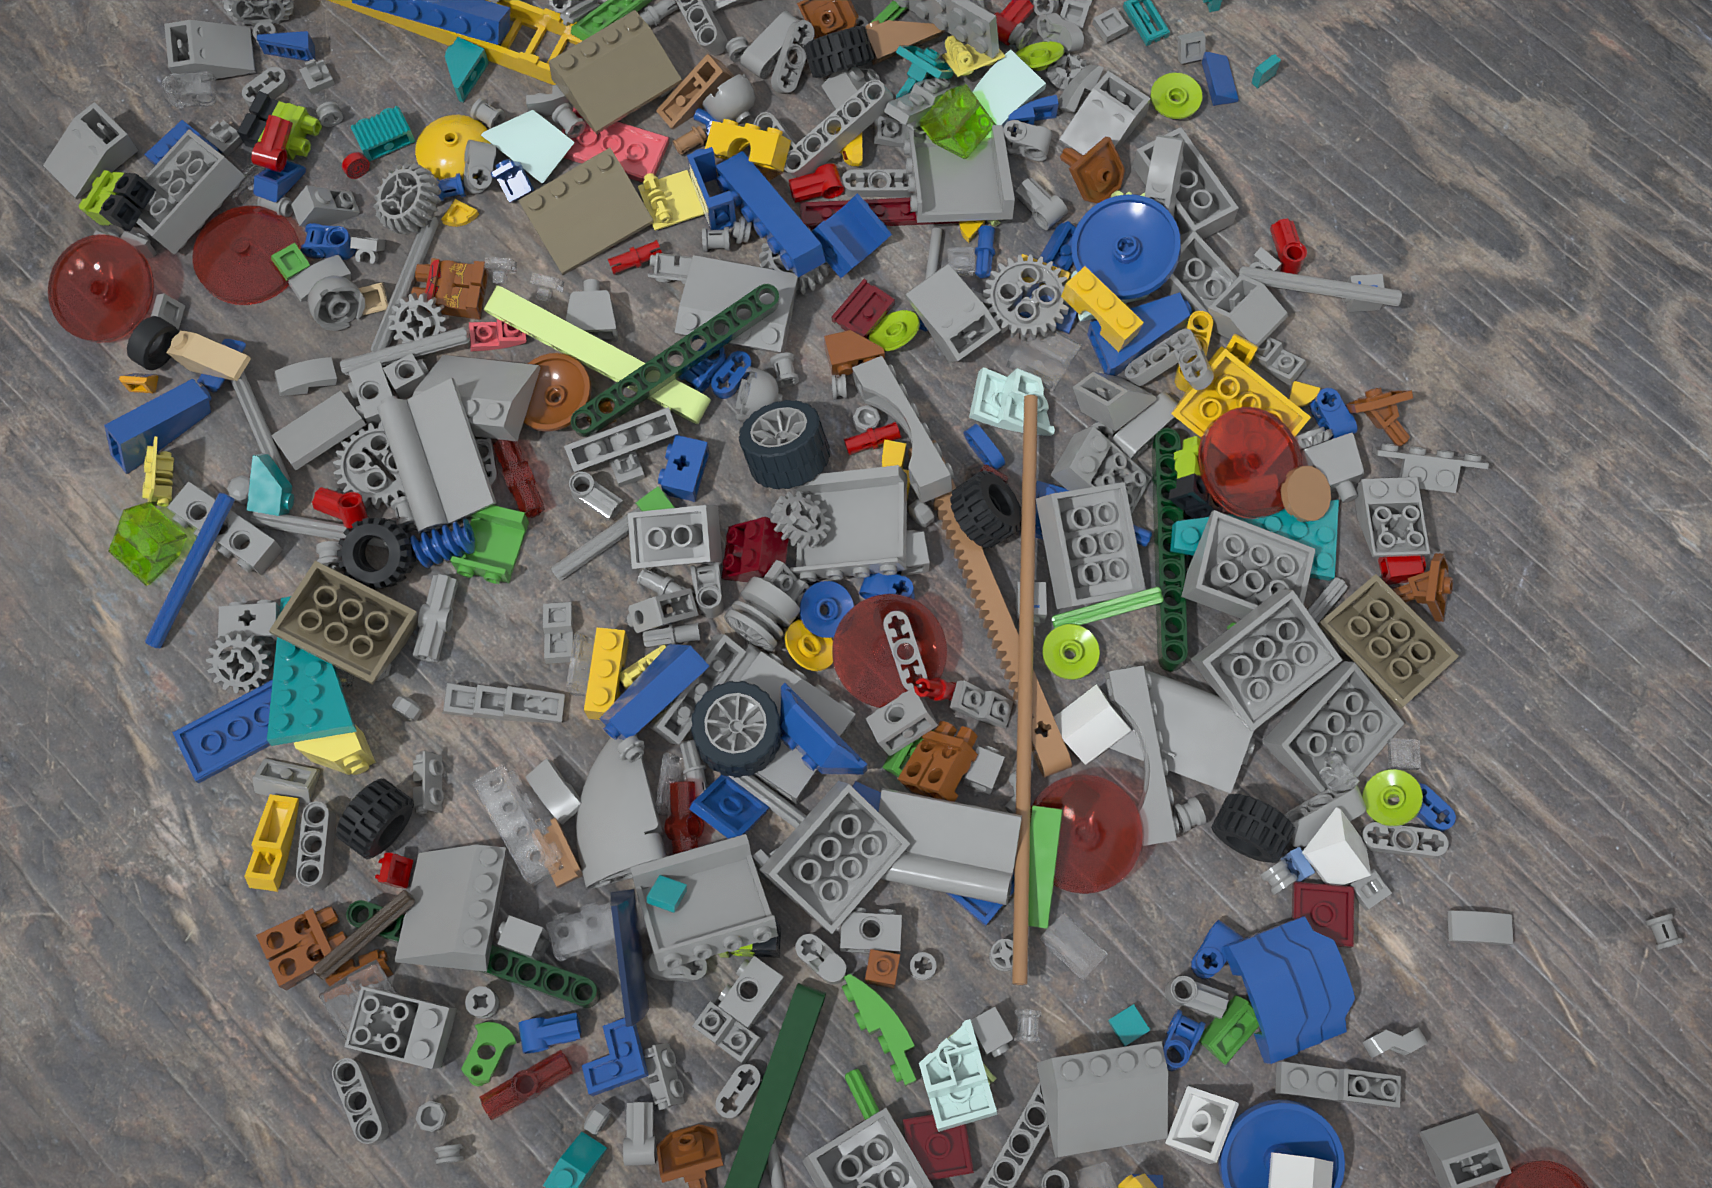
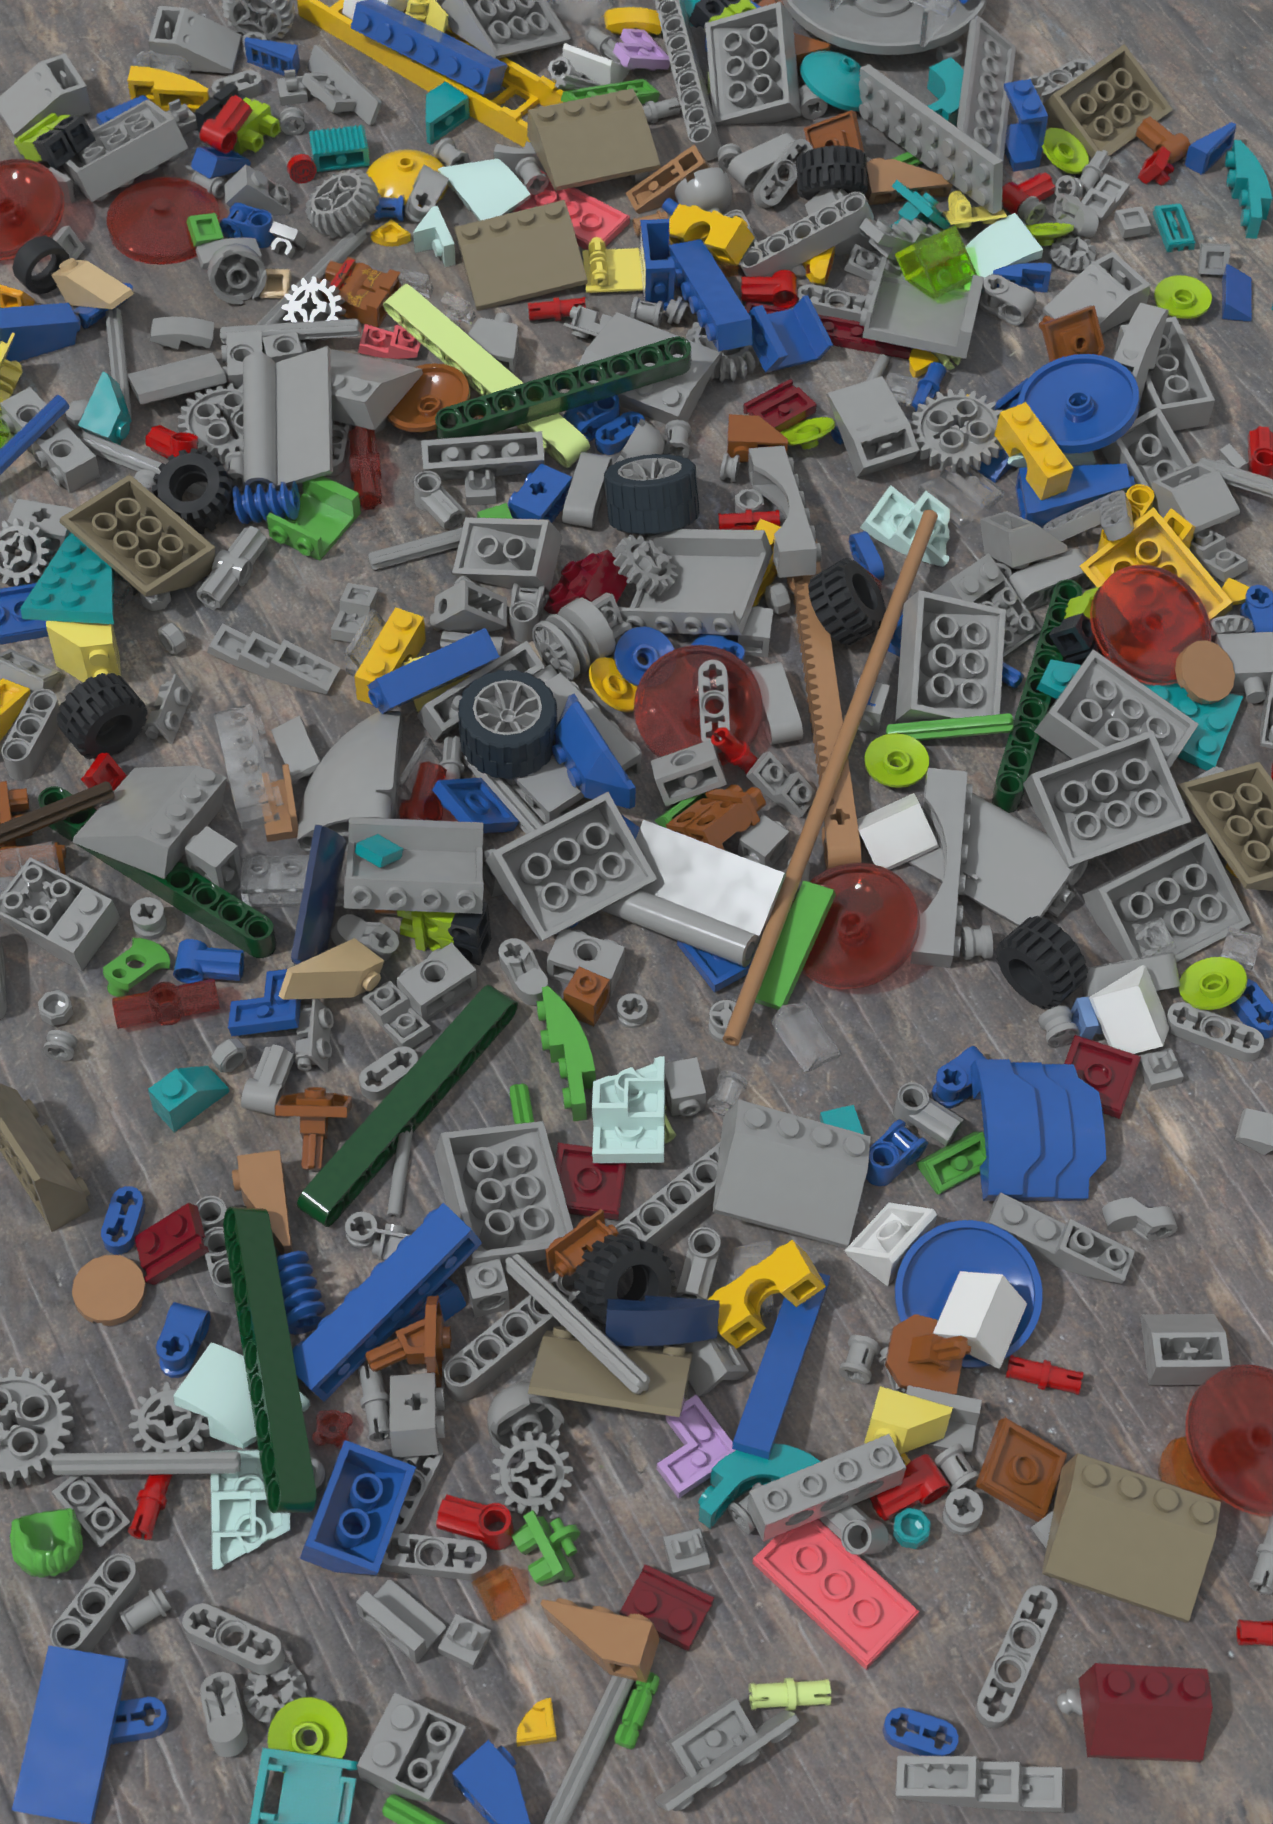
camera: 15 degrees right, 15 degrees down
(201, 109) = (164, 87): none -> yellow slope
(359, 65) = (338, 87): none -> light grey bracket
(500, 206) = (434, 235): none -> light aqua slope
(512, 180) = (454, 209): bracket -> none
(631, 749) = (390, 716): light grey plate -> none
(666, 1017) = (334, 973): none -> tan slope
(722, 445) = (586, 490): none -> light grey beam
(958, 631) = (780, 713): none -> light grey beam
(1045, 208) = (1005, 362): light grey piece -> none
(1082, 82) = (1079, 263): light grey slope -> none

